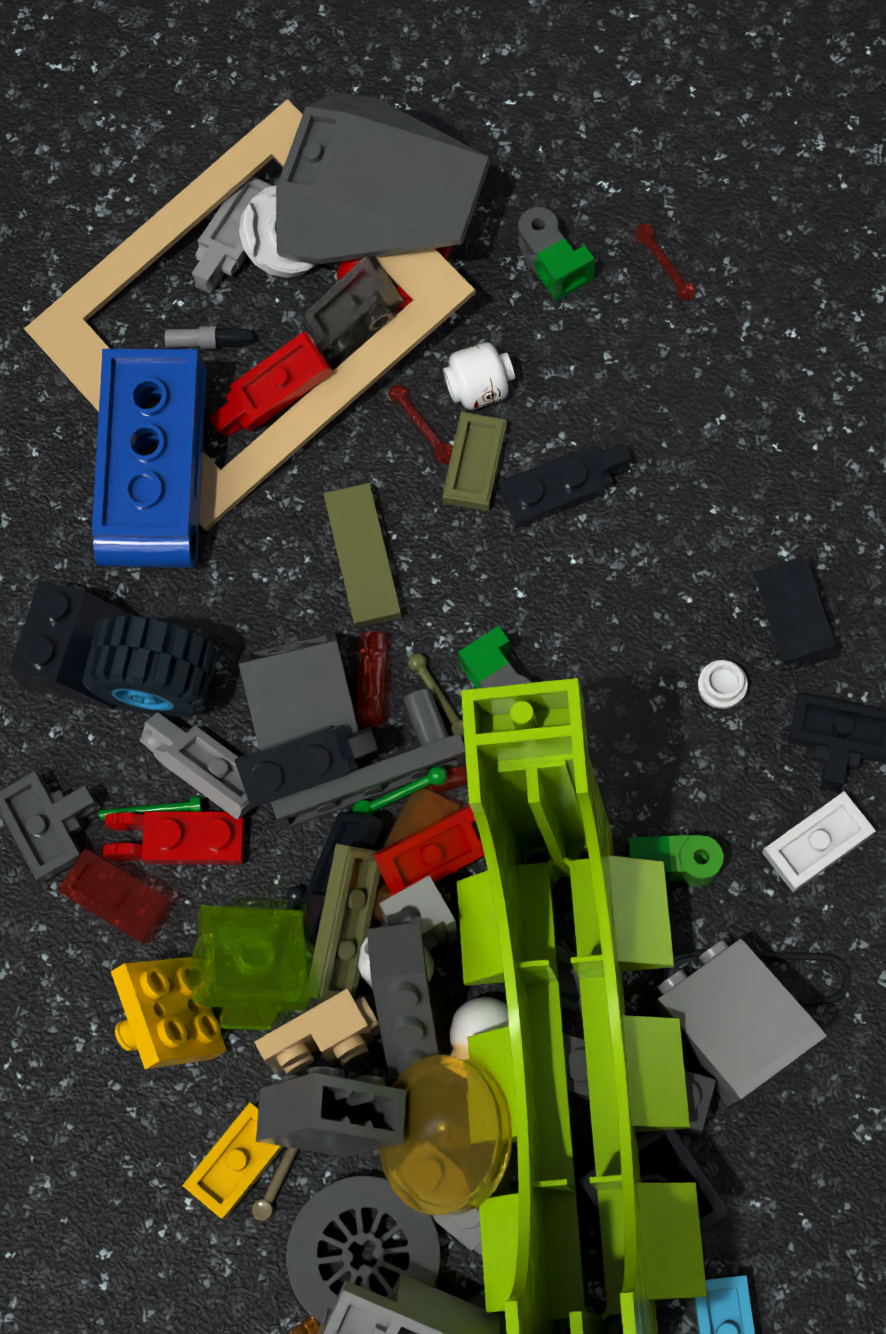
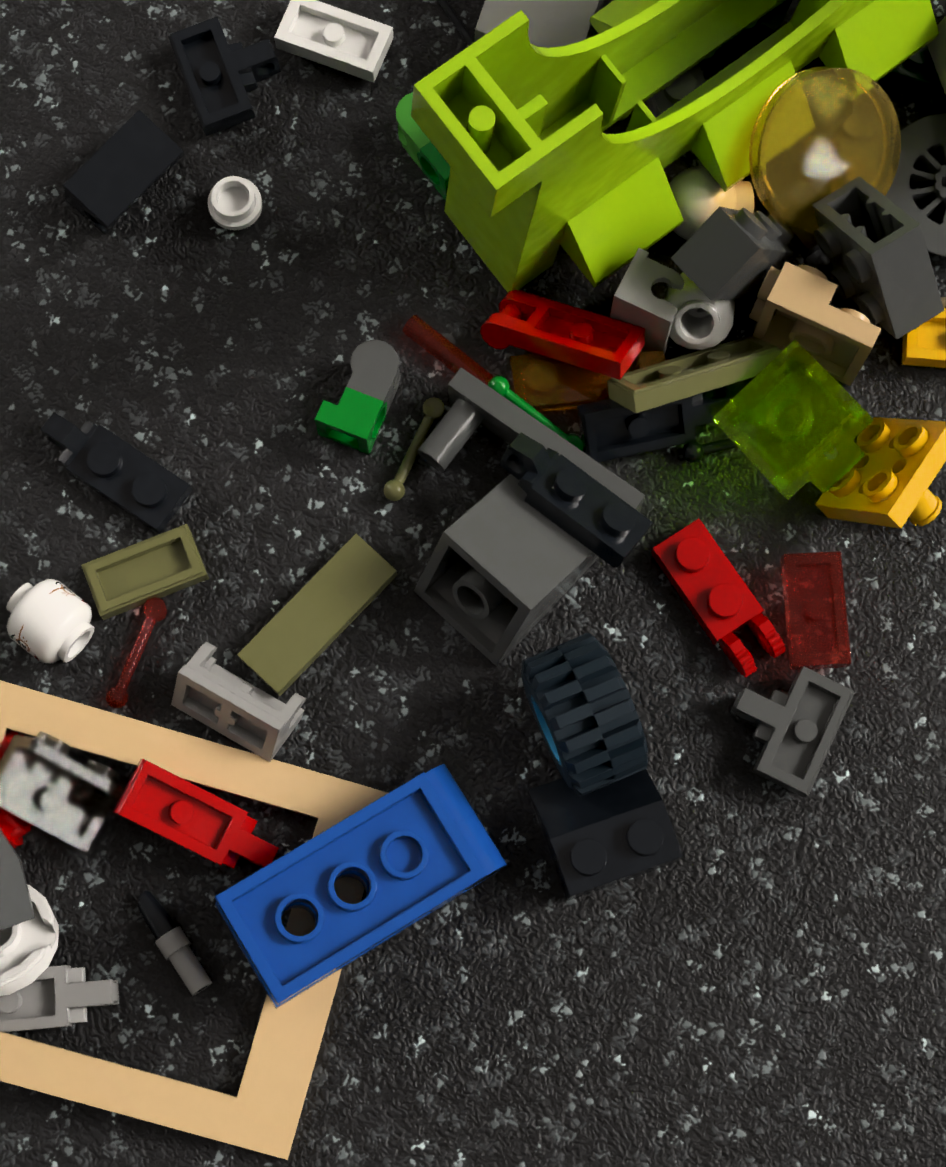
camera: 130 degrees left, 5 degrees up
(194, 805) = (675, 602): green piece -> none
(198, 761) = (636, 614): light grey hinge -> none
(333, 461) = (235, 705): none -> light grey hinge
(371, 678) = (432, 522): clear red axle -> none

